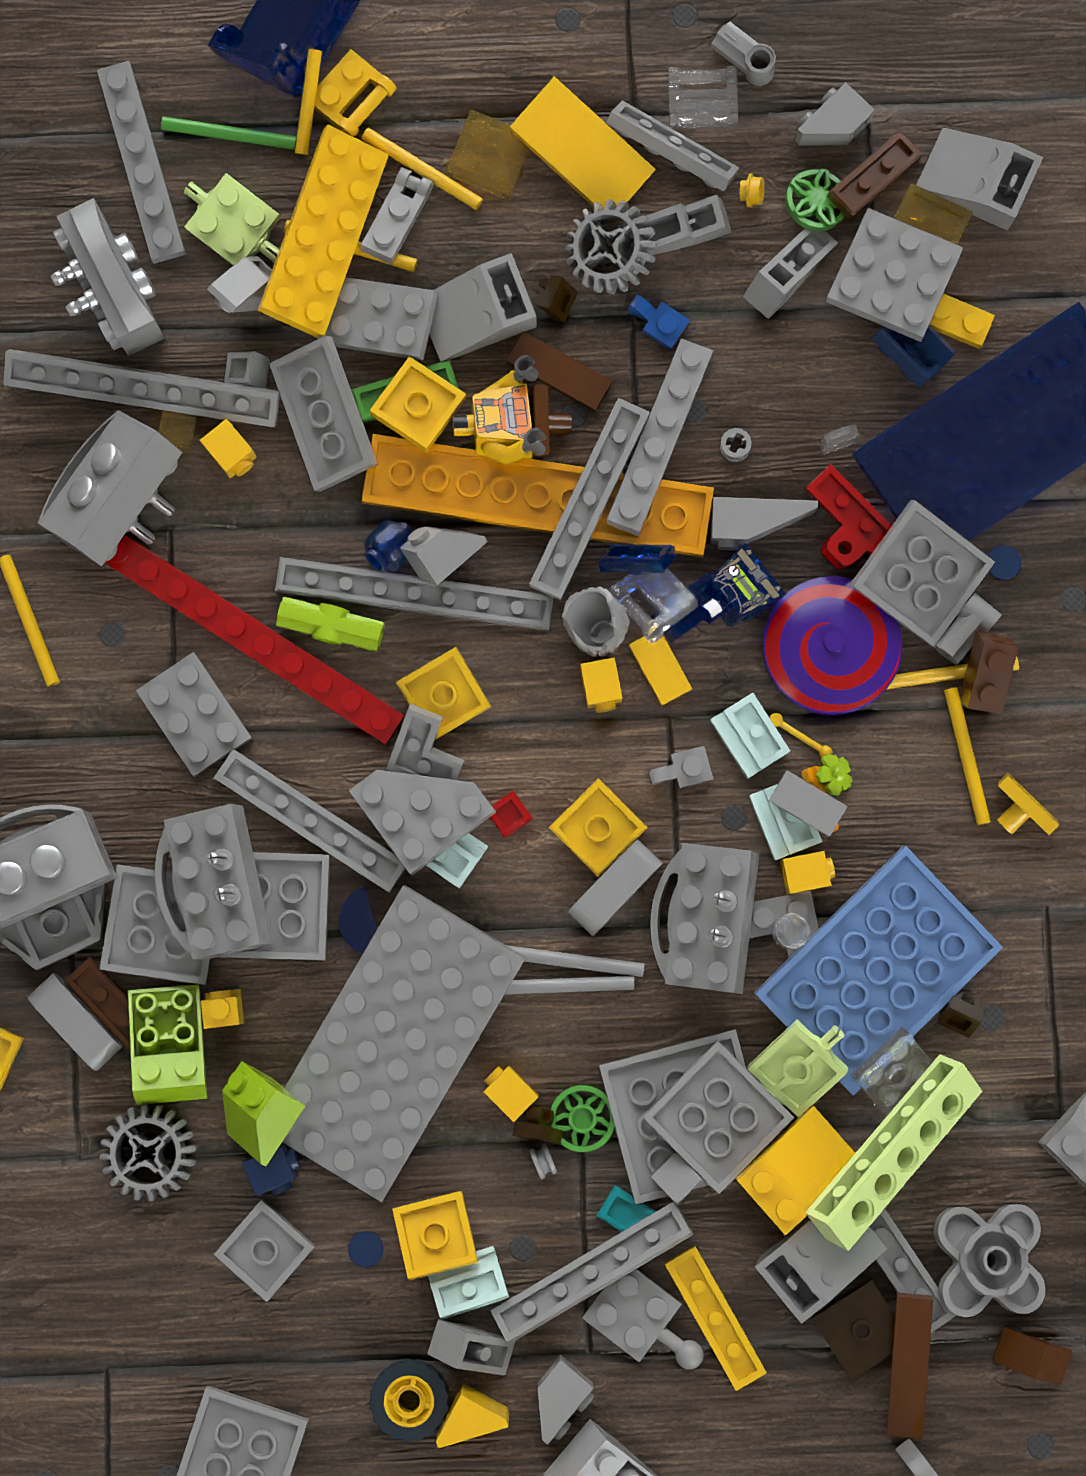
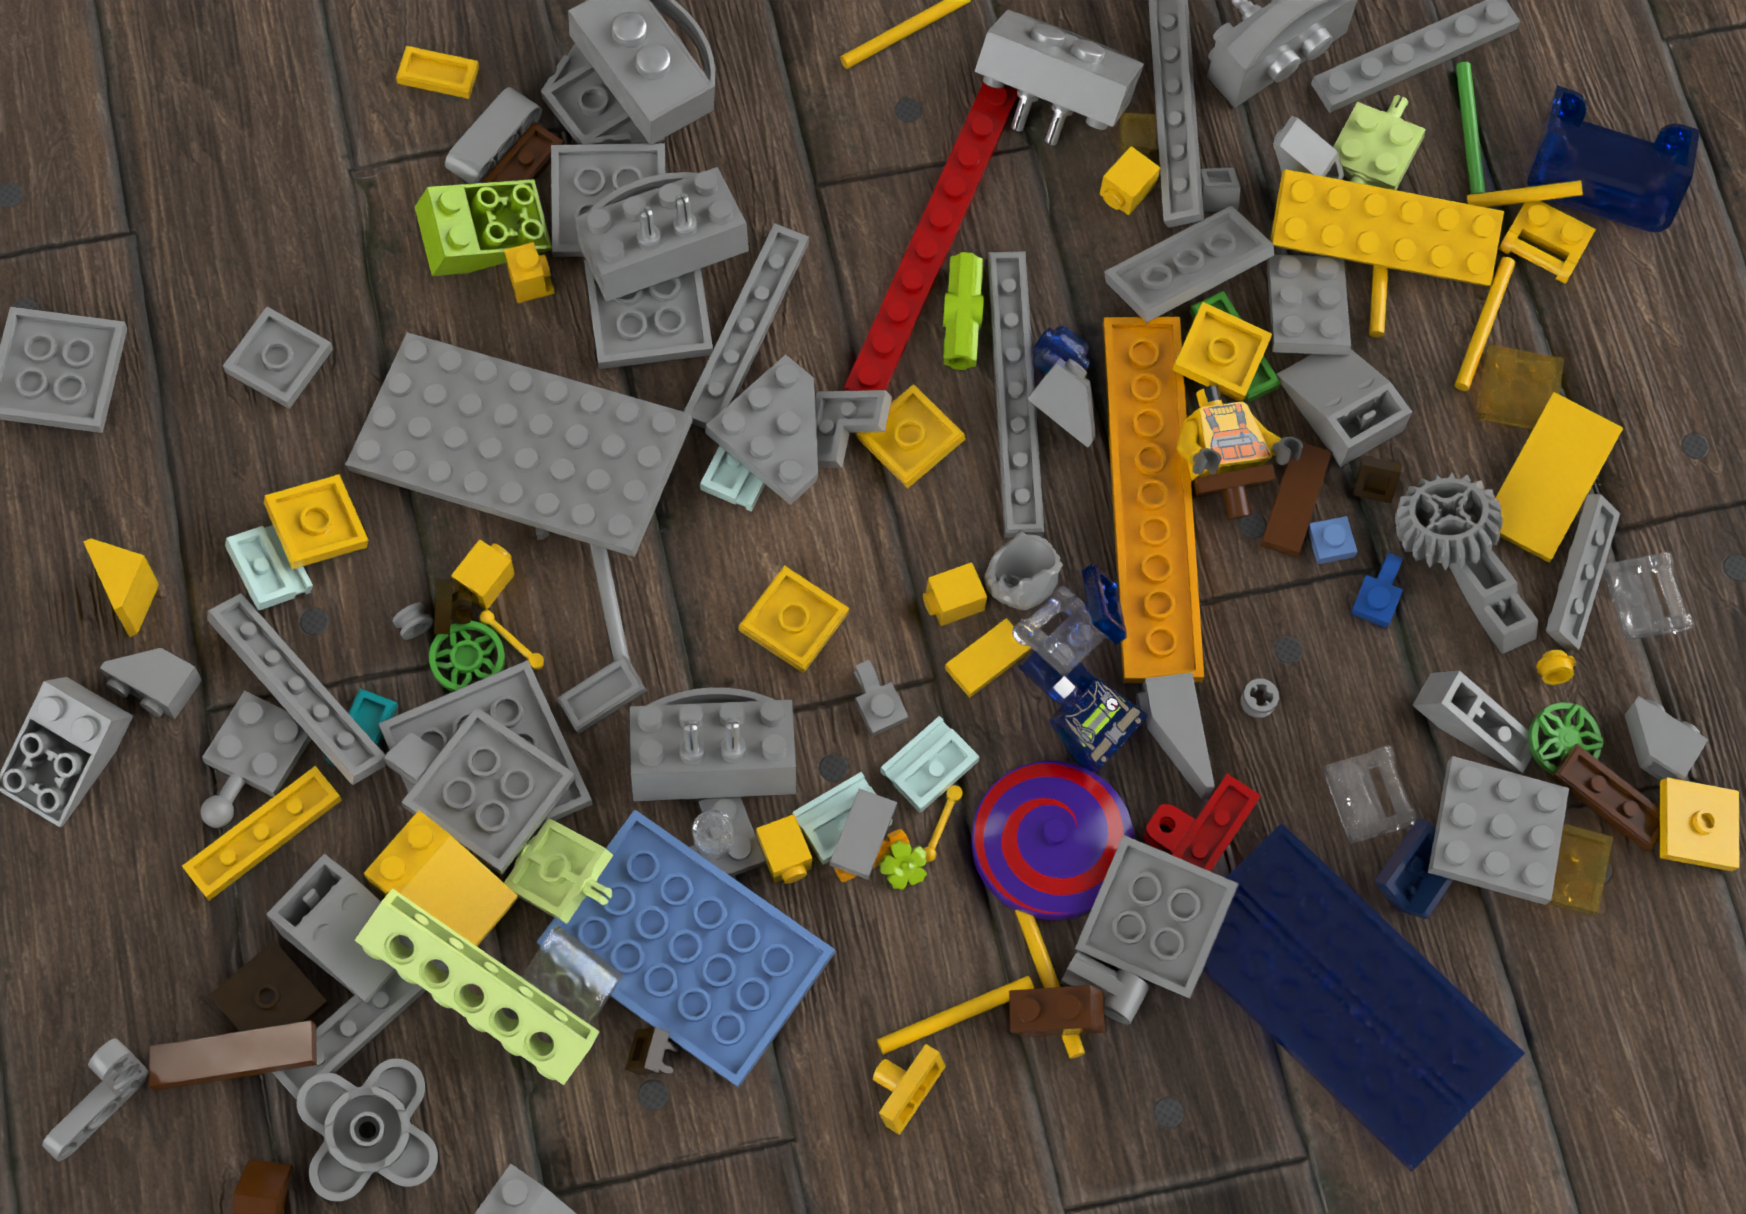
camera: 75 degrees right, 15 degrees down
(137, 1140) = (363, 247): light grey gear -> none
(194, 714) = (839, 198): light grey plate -> none
(258, 1111) = (429, 320): lime slope -> none
(277, 1173) = (364, 348): dark blue brick -> none
(357, 920) = (651, 387): clear blue plate -> none
(365, 1249) = (292, 461): dark blue piece -> none
(396, 216) = (1425, 304): light grey plate -> none
(403, 1422) = (130, 504): black wheel -> none
(470, 1348) = (196, 578): light grey slope -> none
(510, 814) = (791, 527): red tile -> none
(581, 961) = (641, 618): light grey bar -> none
(589, 499) = (1159, 541): light grey plate -> none
(593, 1059) = (535, 659): none -> yellow hinge
(603, 350) = (1332, 540): none -> medium blue plate
(615, 887) = (730, 647): light grey beam -> none
(639, 1005) = (601, 694): none -> light grey tile
(659, 437) = (1248, 609): light grey plate -> none
(743, 52) = (1710, 632): light grey piece -> none
(836, 384) = (1358, 799): none -> clear plate
(839, 439) = (1293, 806): clear tile -> none
(910, 109) = (1699, 824): none -> yellow plate
(961, 321) = (1467, 922): yellow plate -> none
(980, 175) = (1643, 916): light grey slope -> none
(1006, 562) = (1193, 1023): dark blue piece -> none

